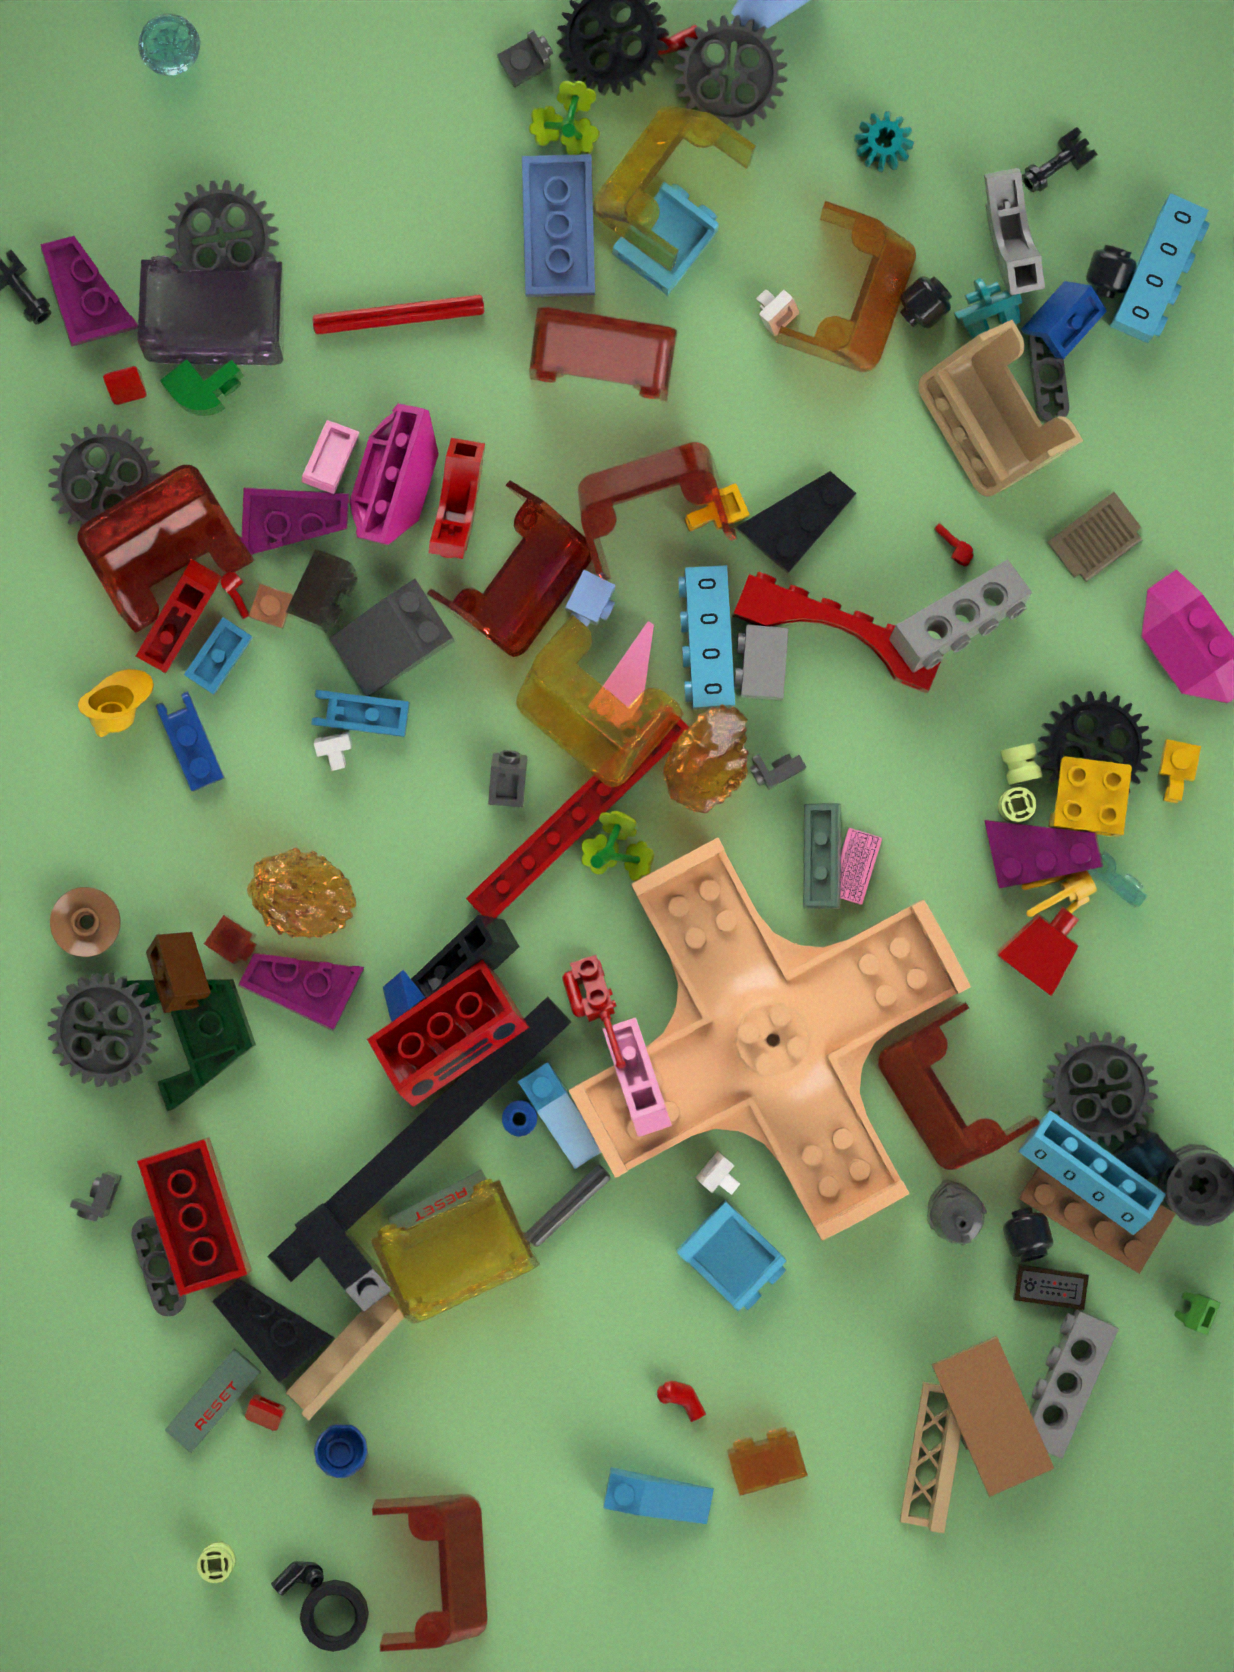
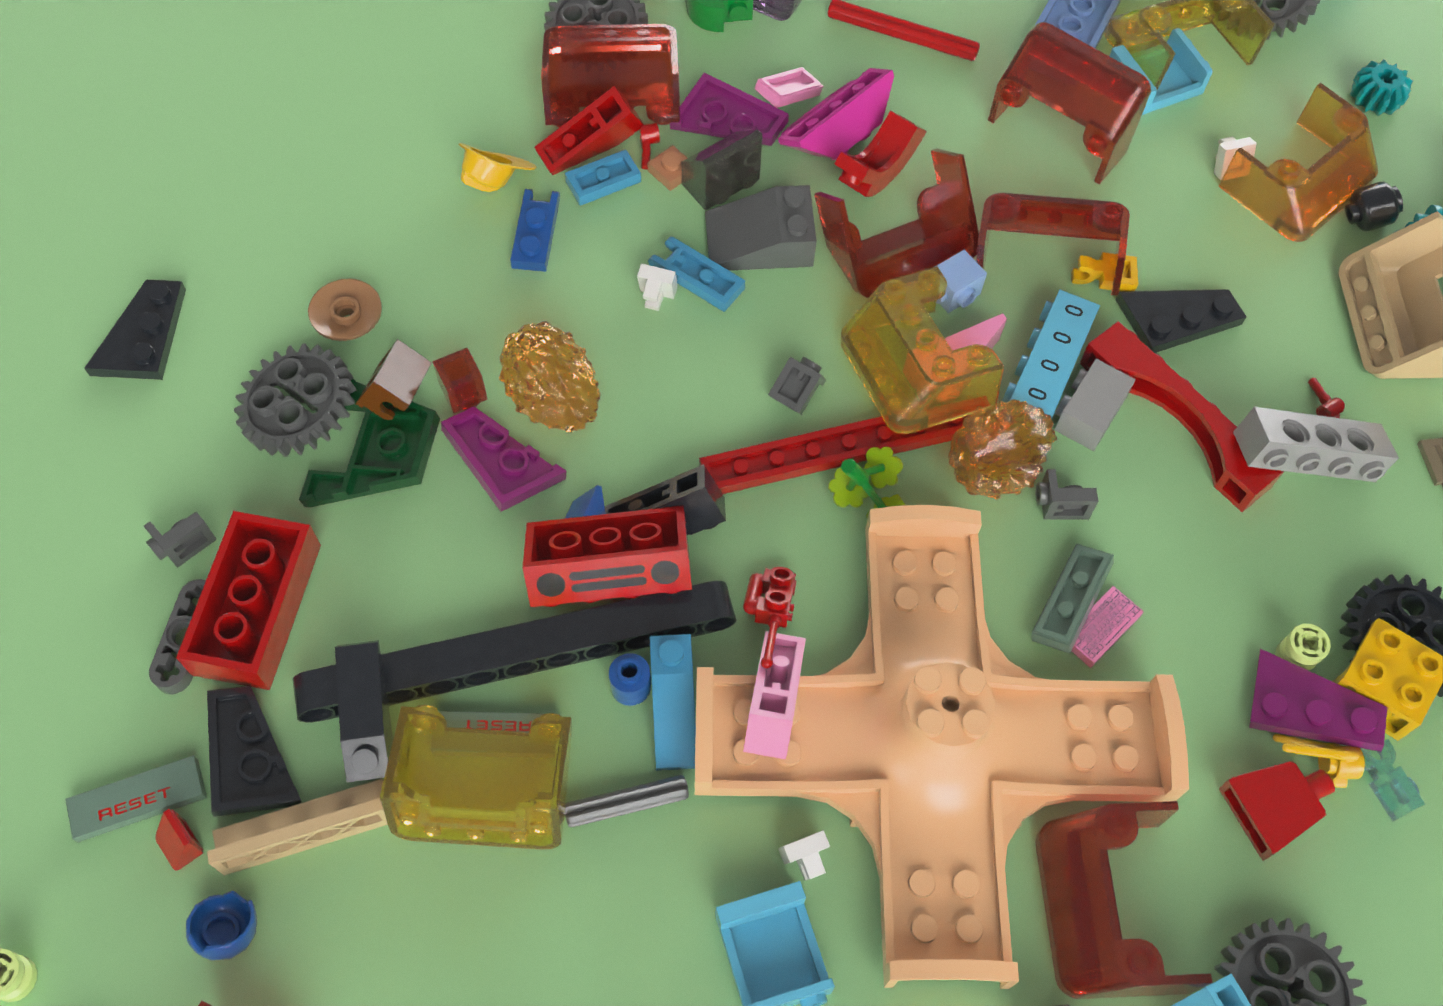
camera: 30 degrees right, 25 degrees down
(1021, 764) = (1323, 610): yellowish green wheel -> none

